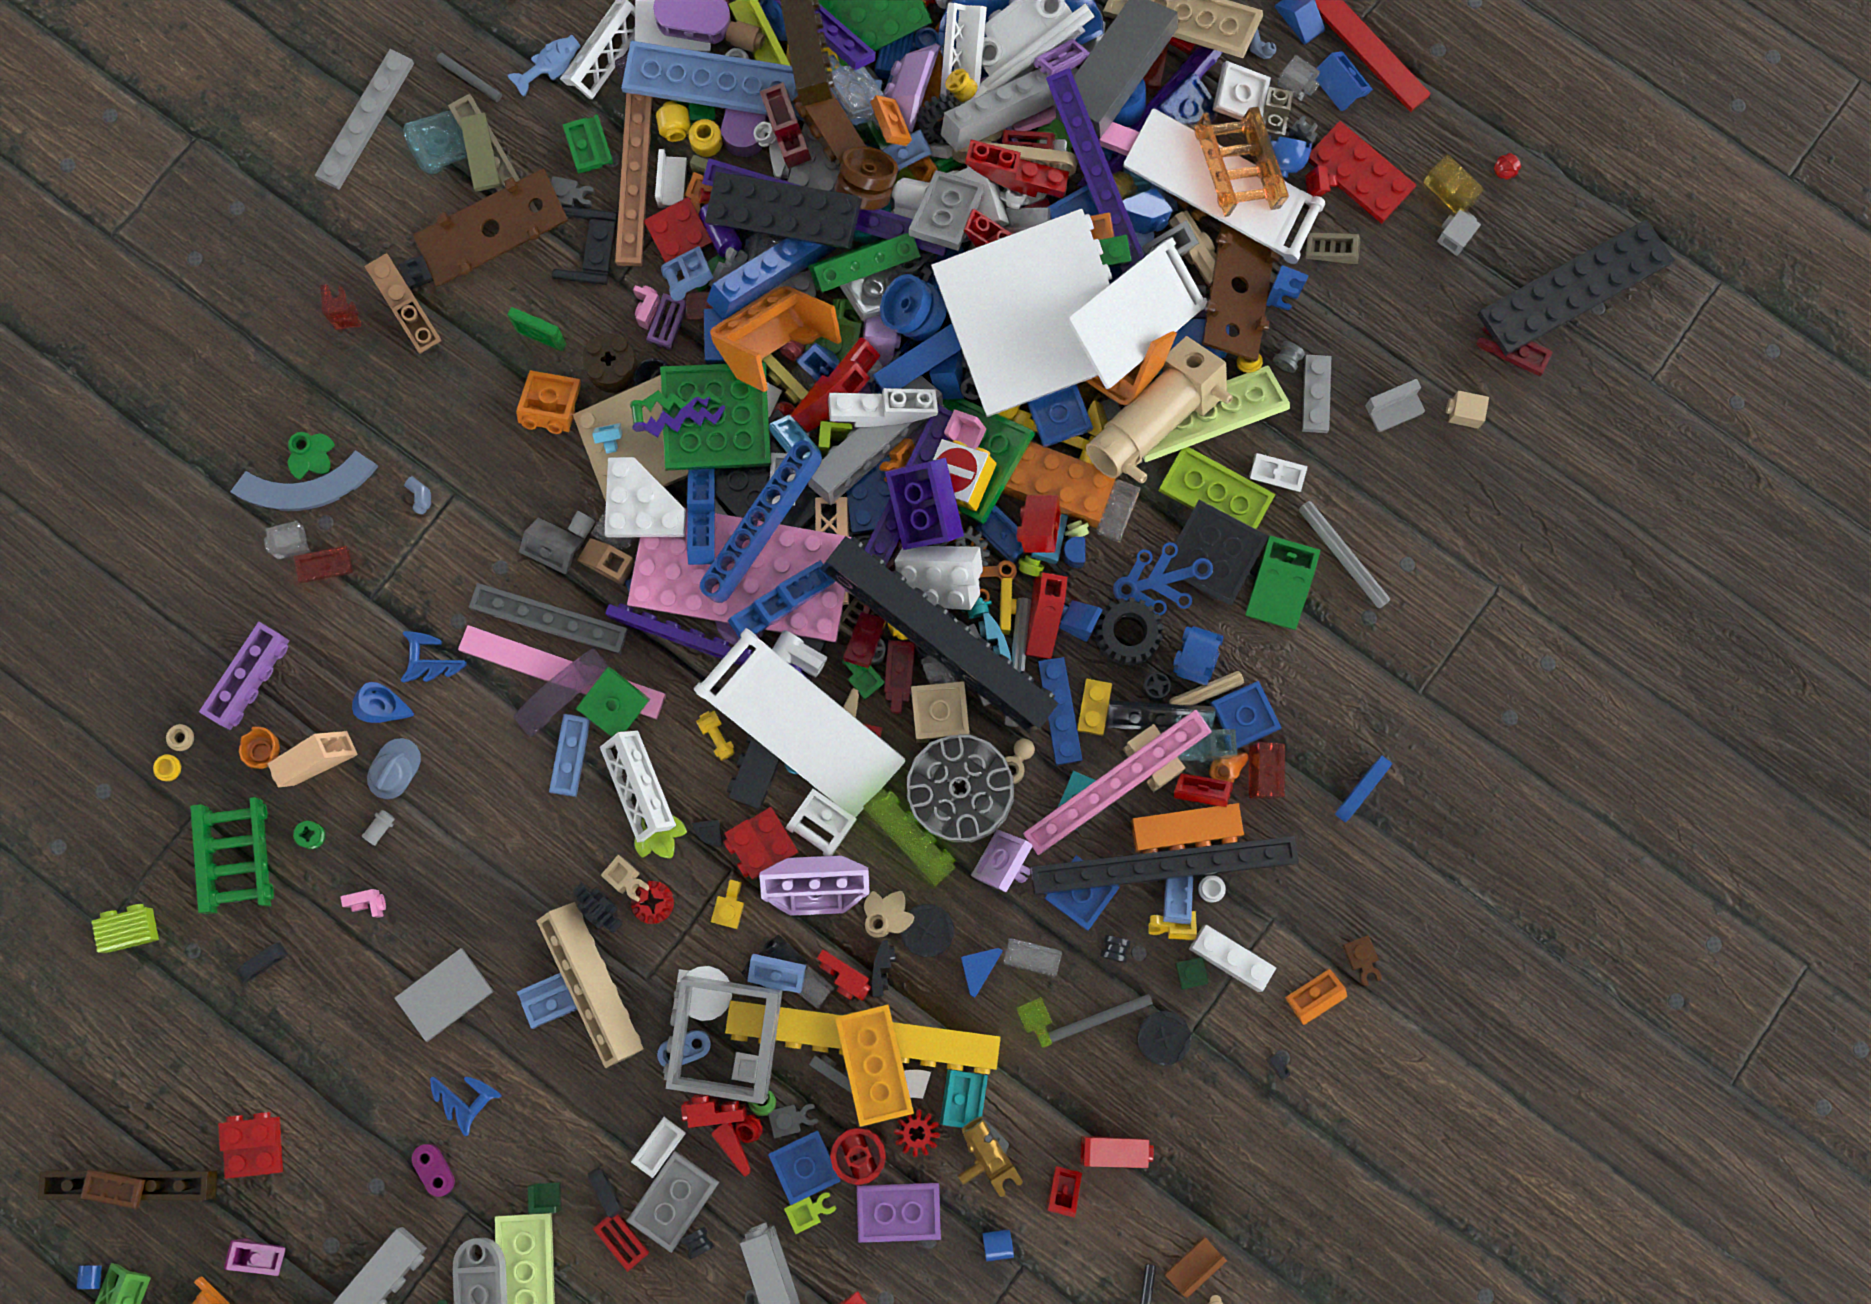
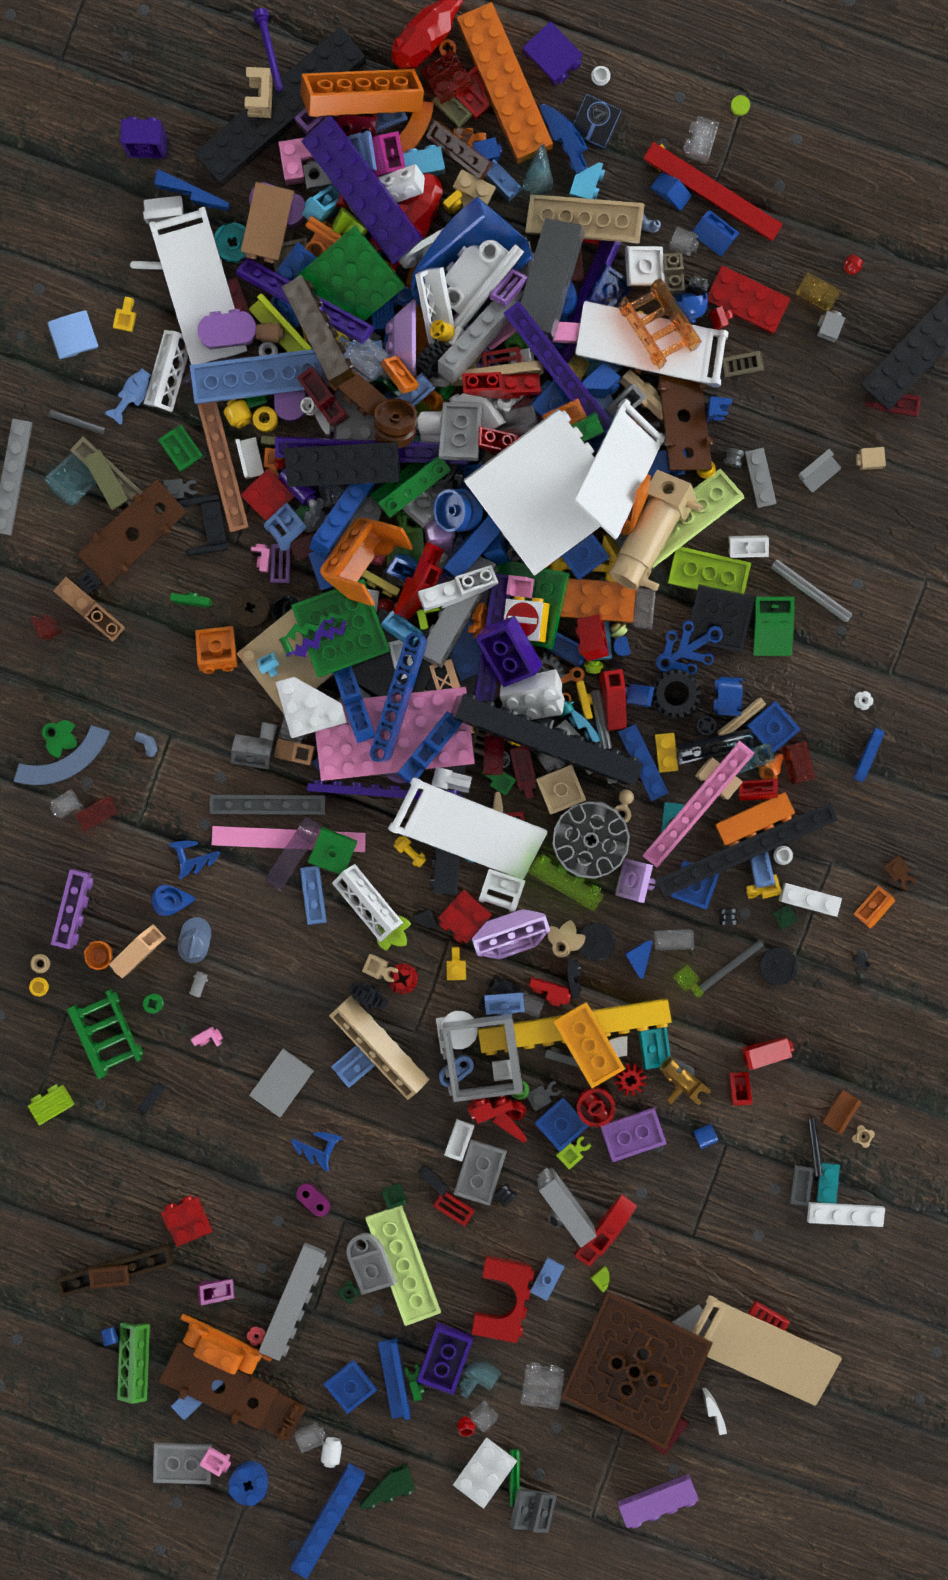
camera: 10 degrees left, 10 degrees up
(1372, 722) = (868, 700): none -> white plate

